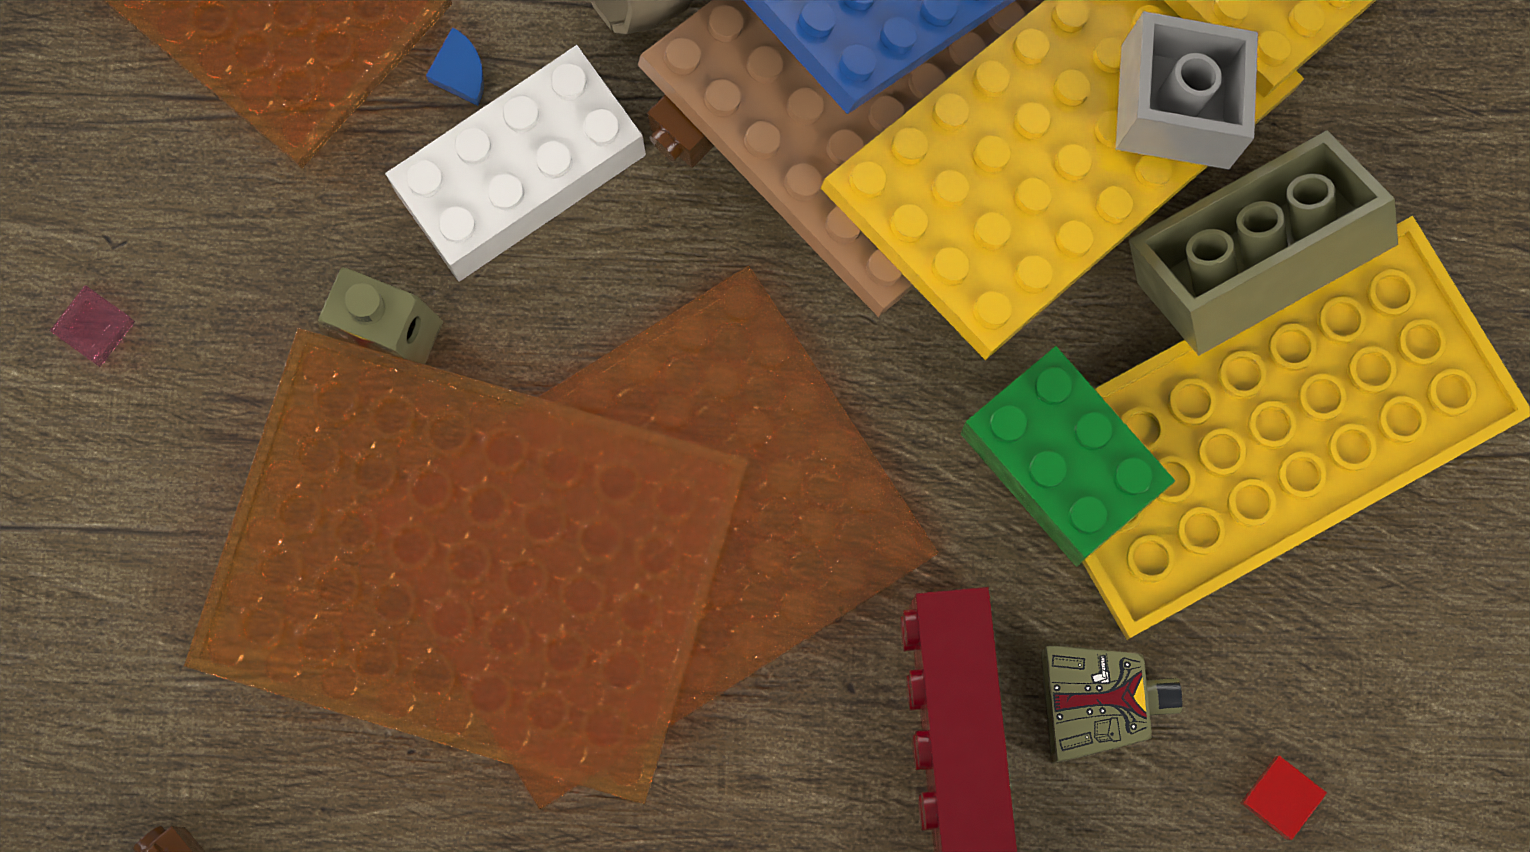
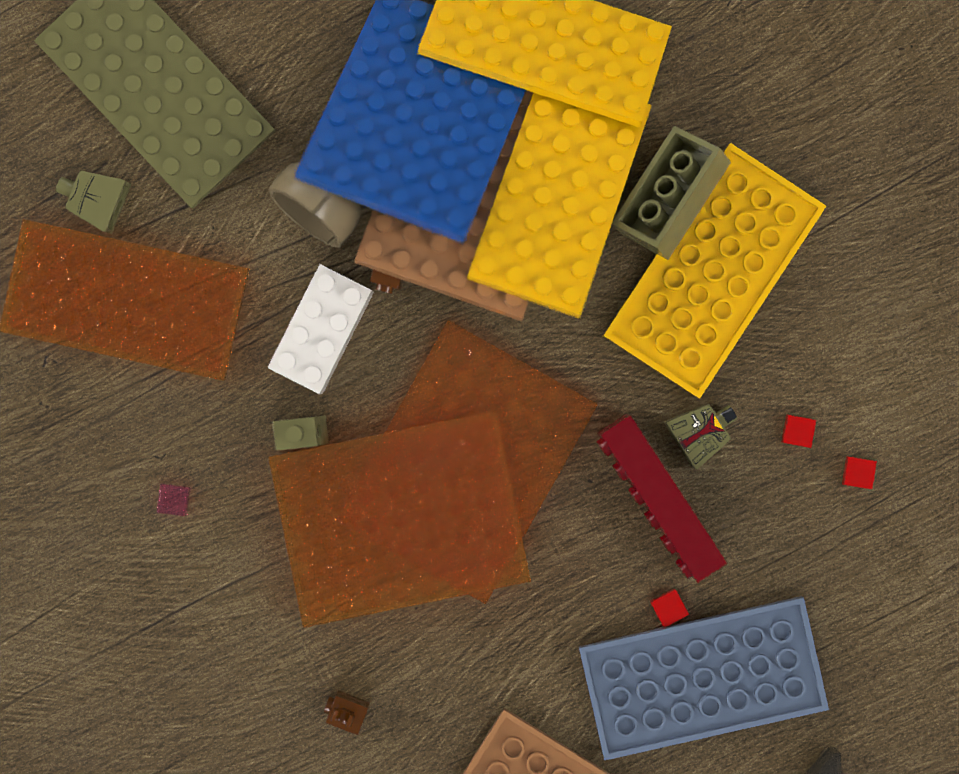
camera: 25 degrees left, 10 degrees up
(458, 68) = (269, 297): blue tile -> none
(1066, 456) = (634, 336): green brick -> none
(1187, 90) = (605, 148): light grey brick -> none

